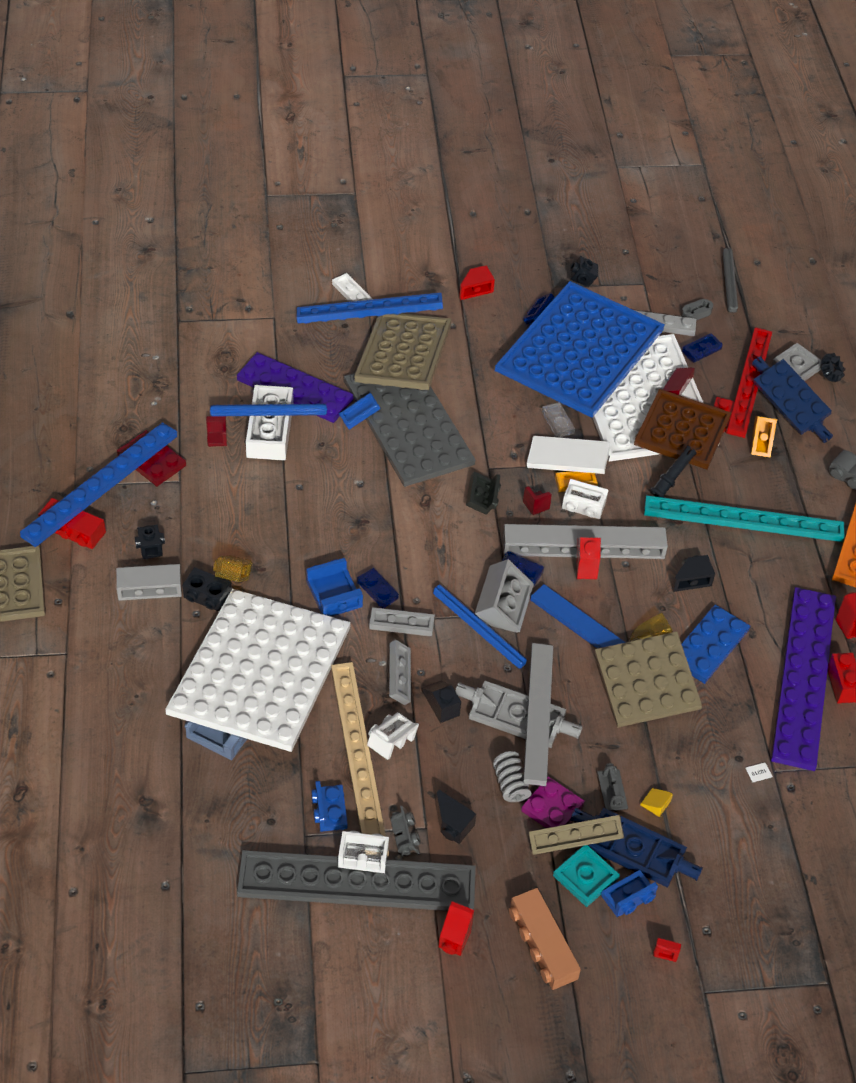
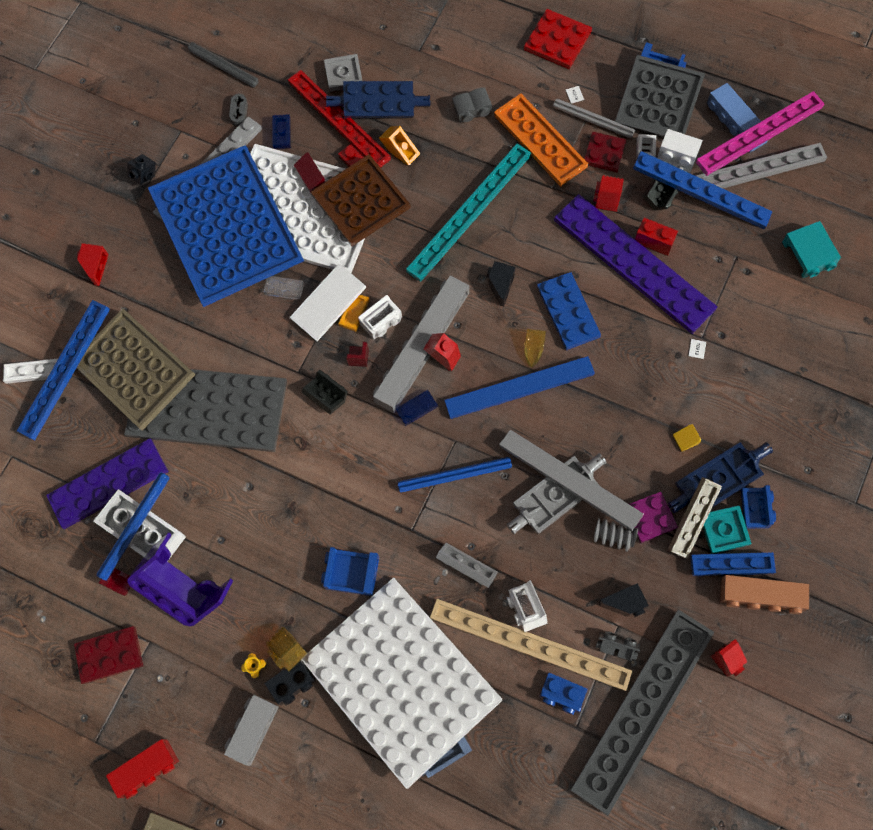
camera: 50 degrees left, 20 degrees up
(98, 485) = (118, 725): blue plate -> none
(149, 541) = (214, 710): black brick -> none
(205, 554) = (247, 666): none -> yellow plate
(234, 461) = (174, 590): none -> dark purple windscreen
(359, 411) = (174, 443): blue tile -> none
(363, 851) = (628, 692): white window -> none
(377, 588) = (369, 534): clear blue plate -> none
(401, 621) = (417, 534): light grey plate -> none
(442, 700) = (509, 545): black slope -> none
(504, 597) = (440, 439): light grey slope -> none
(537, 308) = (156, 230): clear blue plate -> none
(556, 898) = (732, 564): none -> blue plate
(612, 788) = (660, 464): dark grey hinge -> none
(647, 679) = (580, 377): dark tan plate -> none
(667, 950) = (816, 509): red tile -> none
(668, 479) = (402, 244): black pin -> none
(828, 369) = (364, 51): black gear -> none

